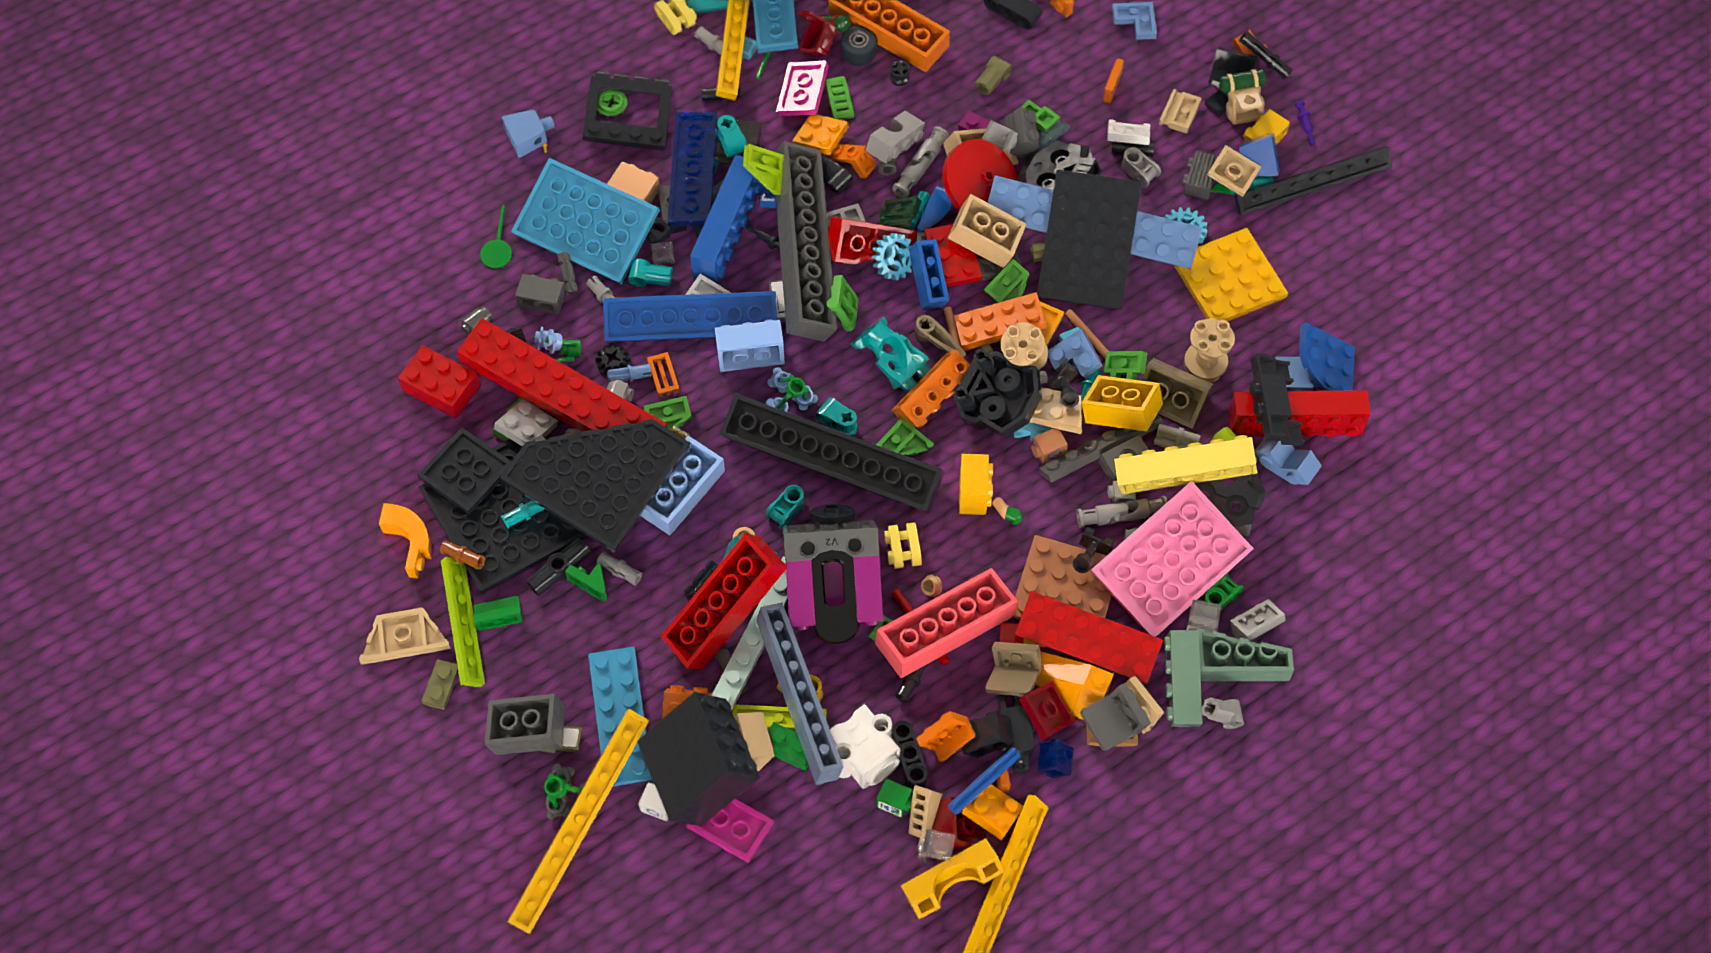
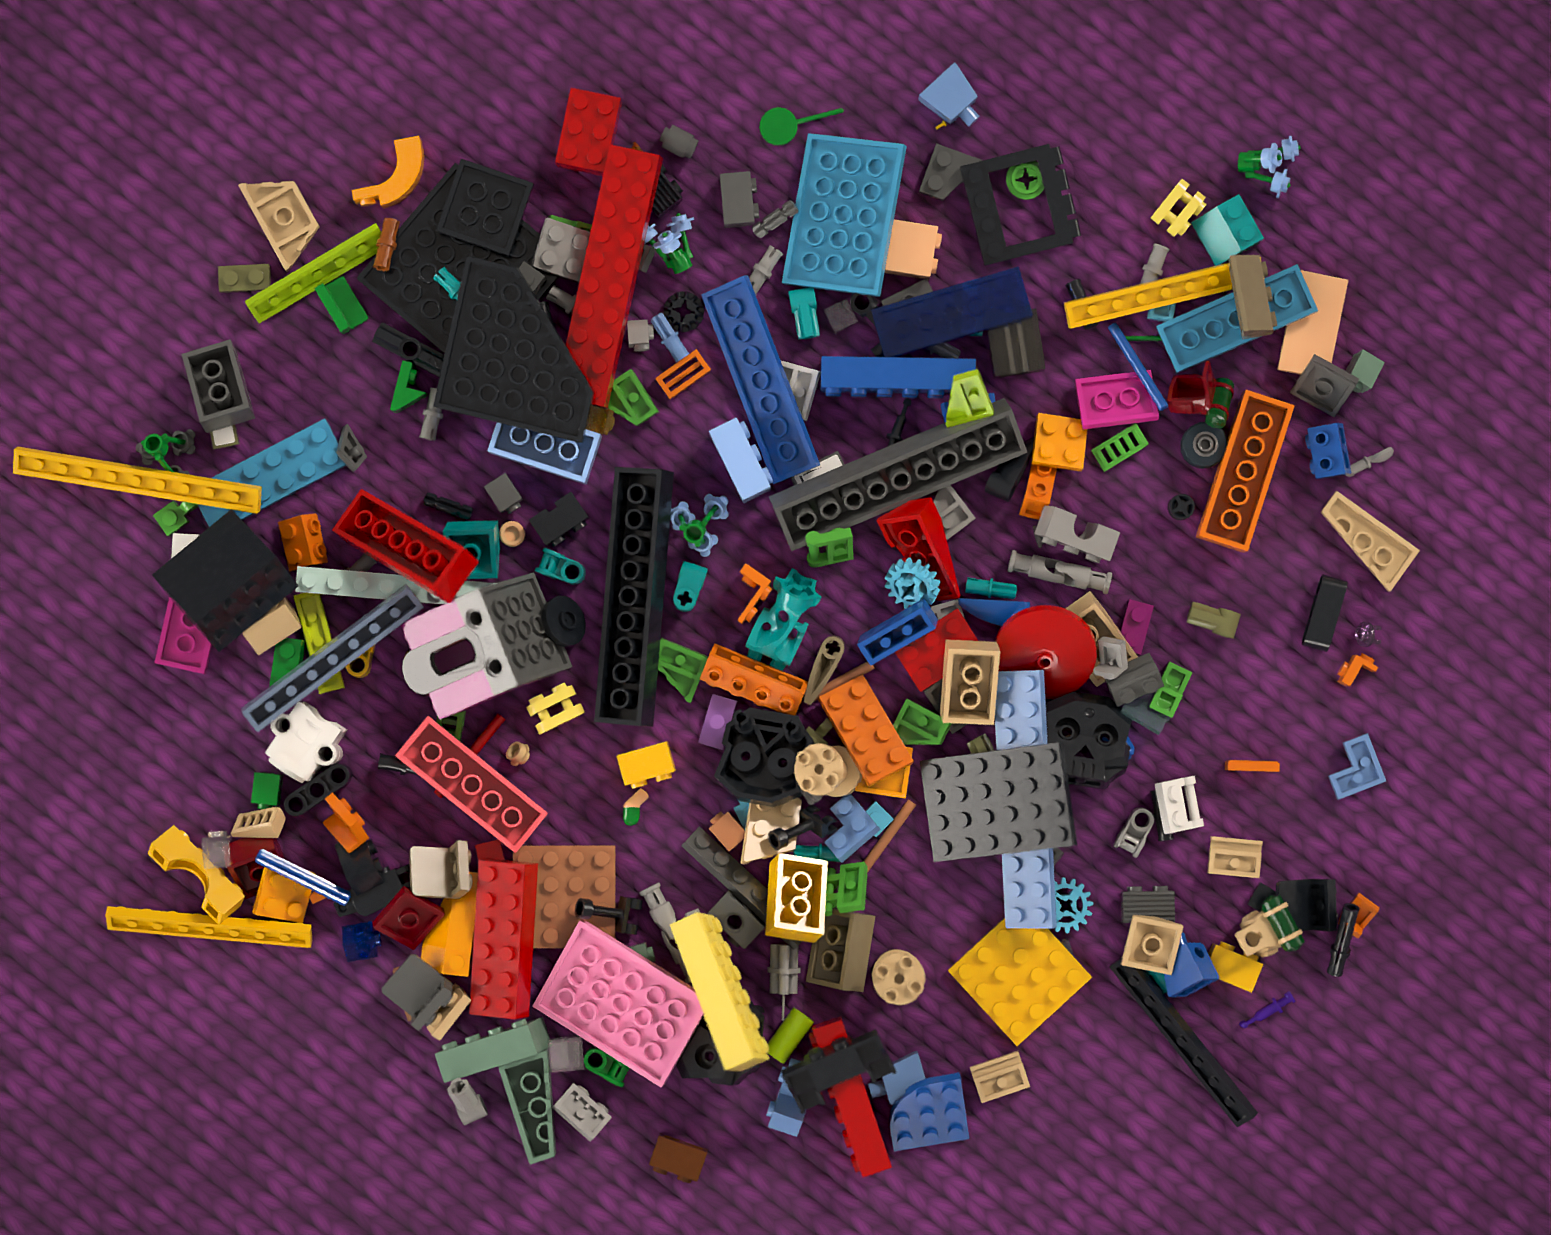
camera: 75 degrees right, 25 degrees up
(581, 154) = (944, 172): none -> dark grey wing
(623, 642) = (349, 449): none -> dark grey piece
(623, 806) = (173, 516): none -> bright green plate
(708, 531) = (504, 494): none -> dark grey brick
(730, 136) = (1002, 346): teal piece -> none
(746, 496) = (564, 518): none -> black brick
(783, 67) = (1138, 366): none -> blue bar
(855, 359) = (754, 578): none -> orange bracket
(899, 212) = (975, 569): clear green plate -> none
(956, 430) = (718, 714): none -> medium lavender tile
(1309, 308) = (999, 1076): none -> tan plate
(1316, 561) = (678, 1158): none -> reddish brown brick

